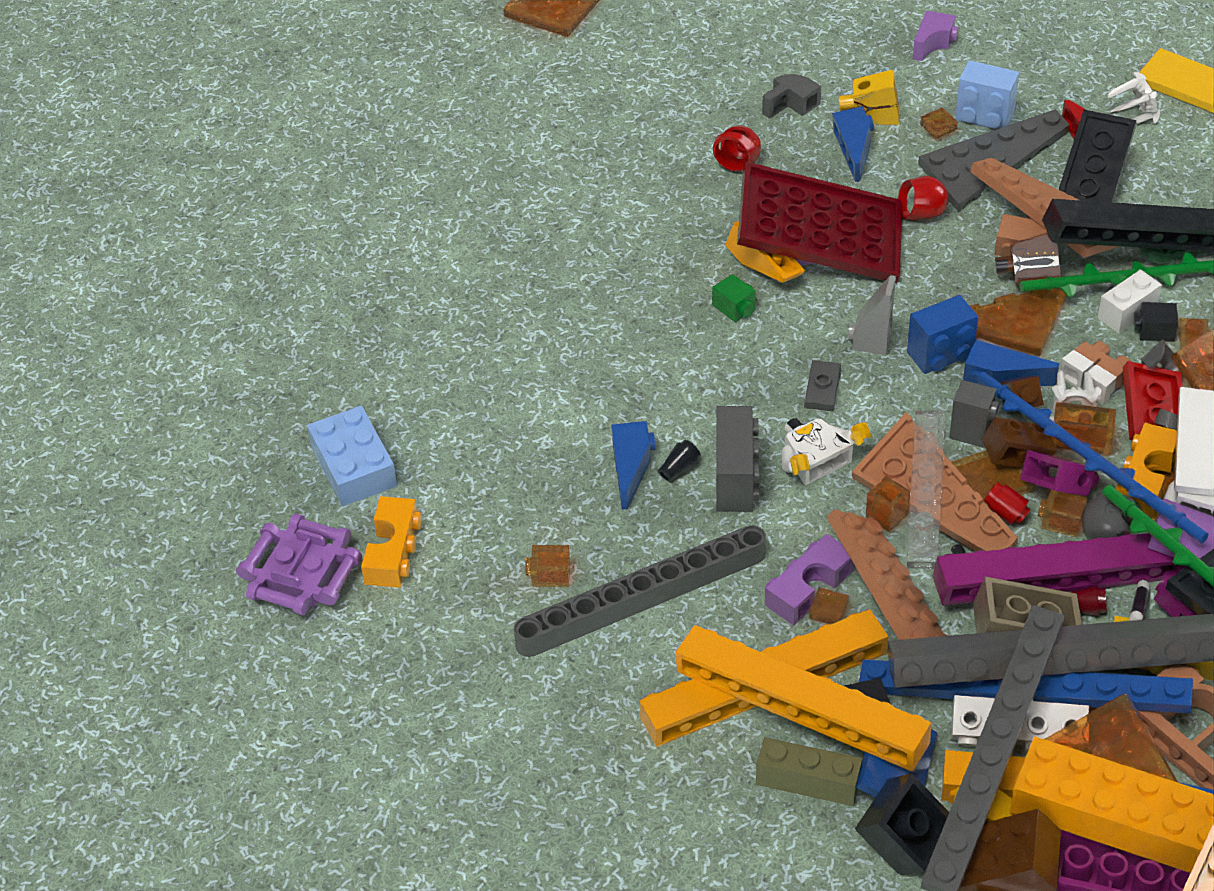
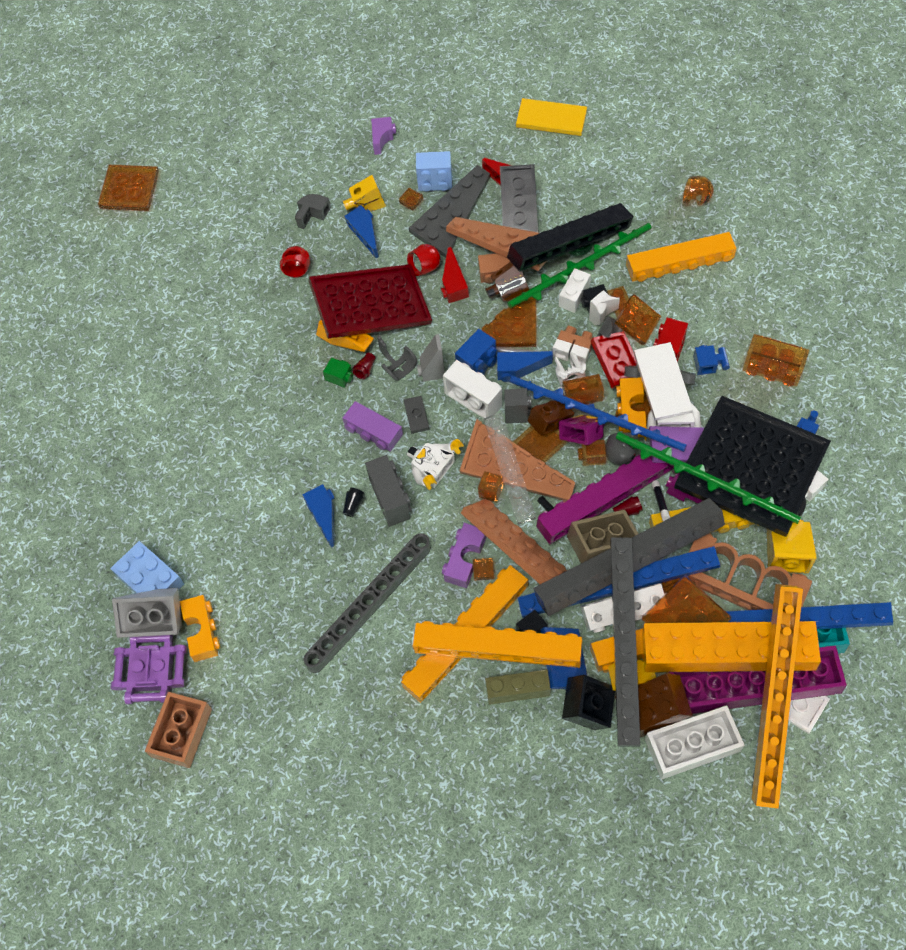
camera: 20 degrees left, 15 degrees up
(301, 651) = (178, 729): none -> nougat brick
(329, 492) = (148, 613): none -> light grey slope
(549, 566) = (305, 607): clear orange brick -> none
(752, 378) = (372, 426): none -> medium lavender brick
(774, 303) = (363, 367): none -> dark red cone
(842, 313) = (407, 356): none -> dark grey helmet
(916, 371) = (472, 390): none -> white brick
(953, 236) = (453, 281): none -> red slope
(1007, 503) = (558, 459): red brick -> none
(1026, 388) = (538, 376): reddish brown brick -> none
(1144, 97) = (528, 139): white piece -> none
(1159, 324) = (602, 306): none -> white slope

